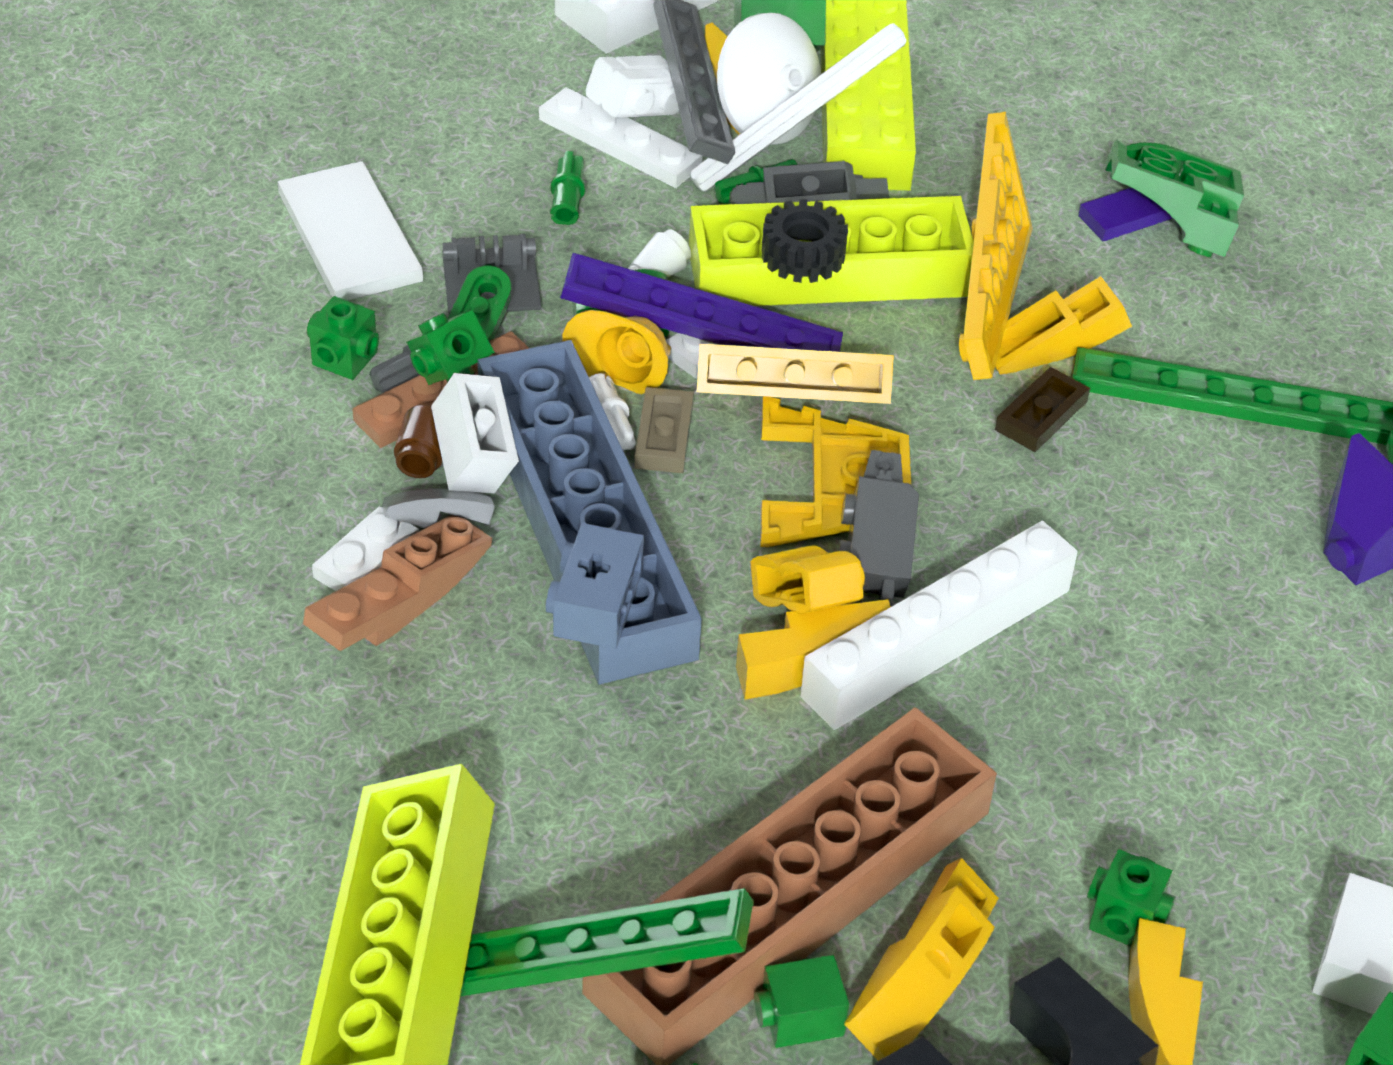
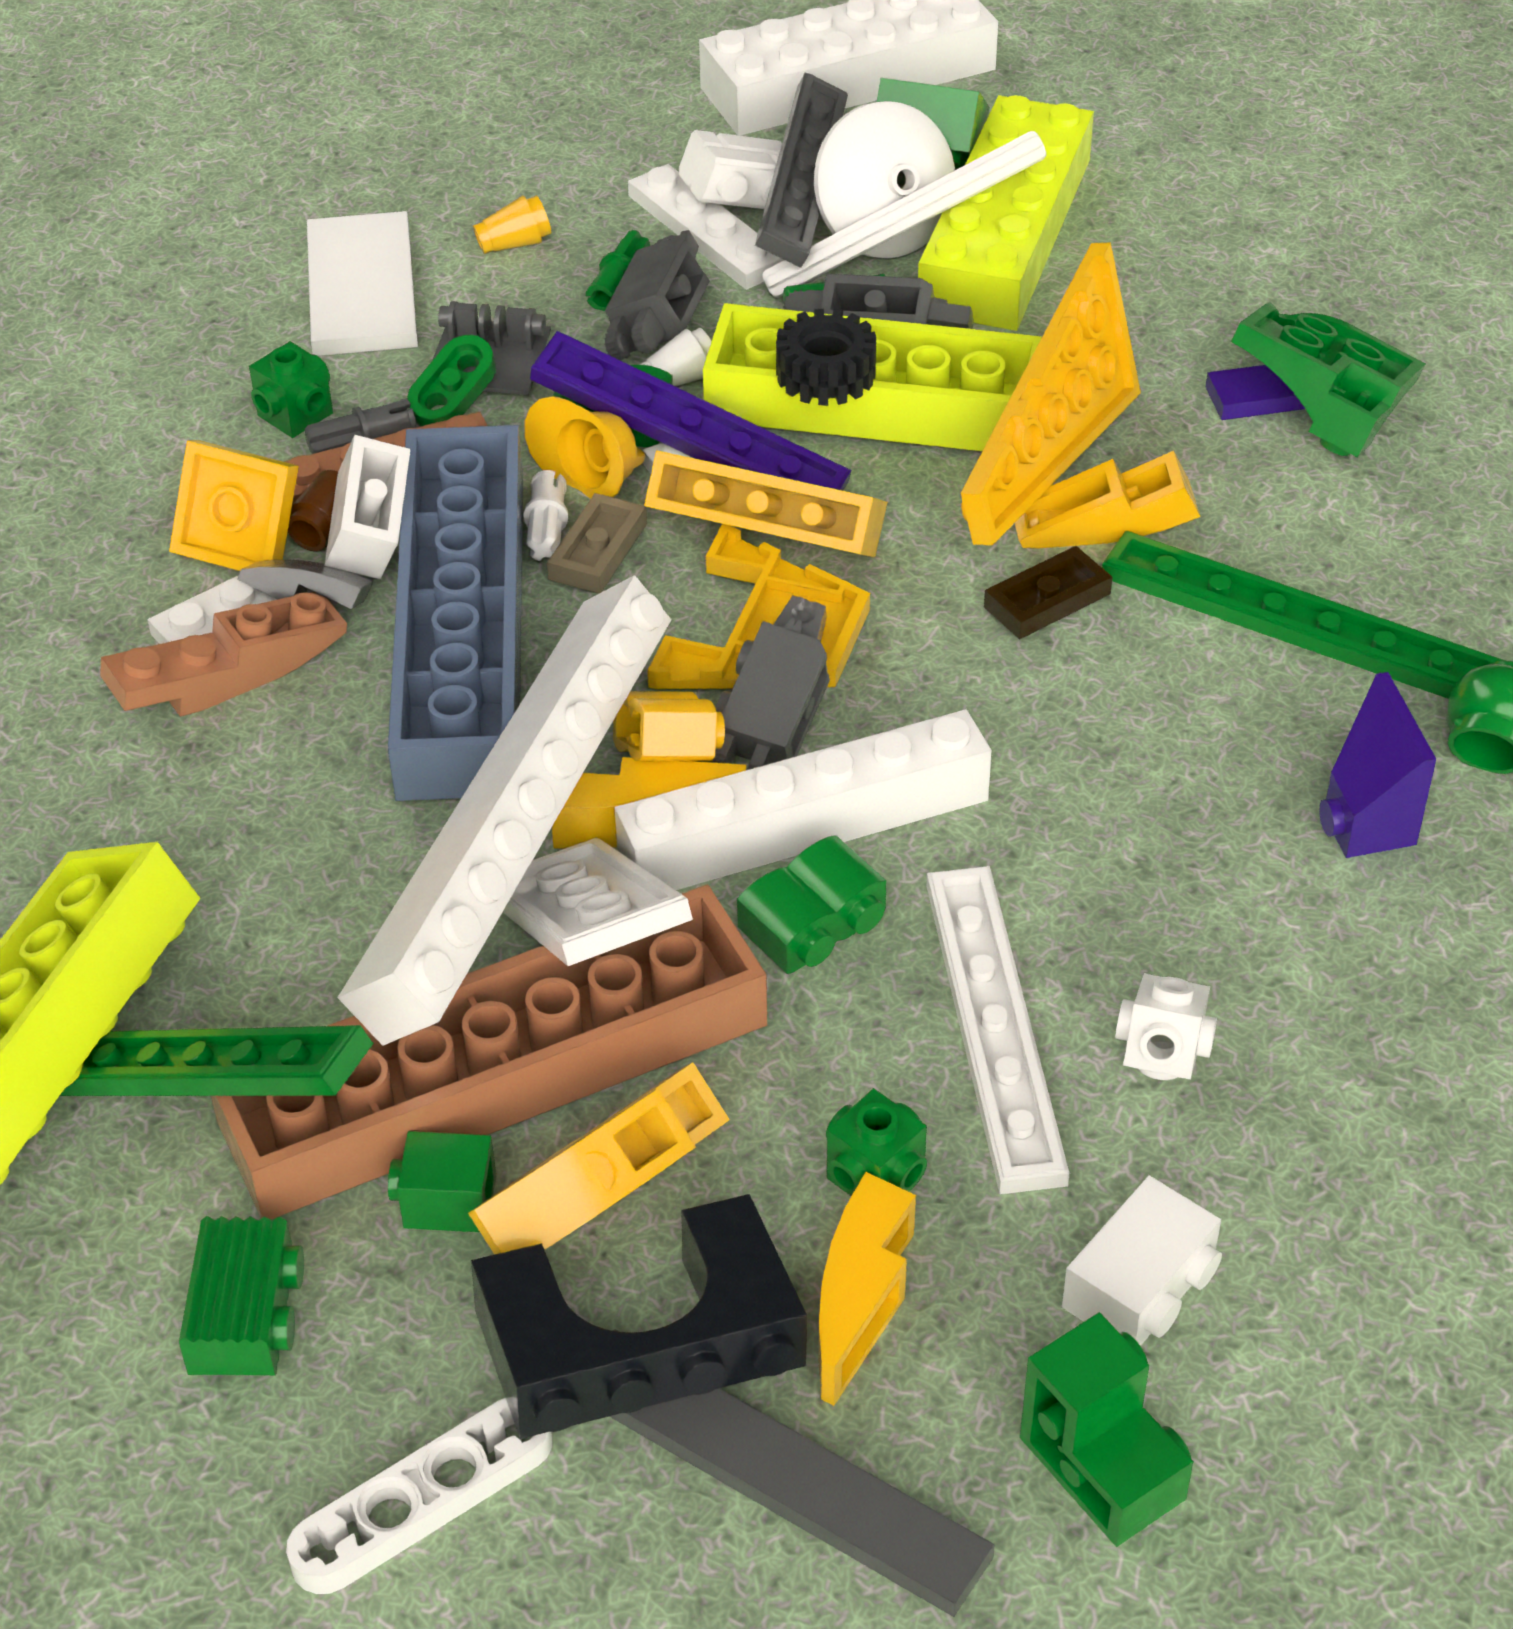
camera: 20 degrees right, 0 degrees up
(350, 452) = (232, 506): none -> yellow tile
(448, 346) = (396, 400): green brick -> none
(461, 161) = (513, 226): none -> yellow cone
(596, 585) = (403, 684): sand blue brick -> none
(616, 205) = (655, 296): none -> dark grey hinge
(735, 682) = (504, 816): none -> white brick
(820, 740) = (592, 902): none -> white tile
(987, 703) = (812, 904): none -> green brick
(1165, 779) = (996, 1032): none -> white tile
(1302, 750) = (1166, 1027): none -> white brick

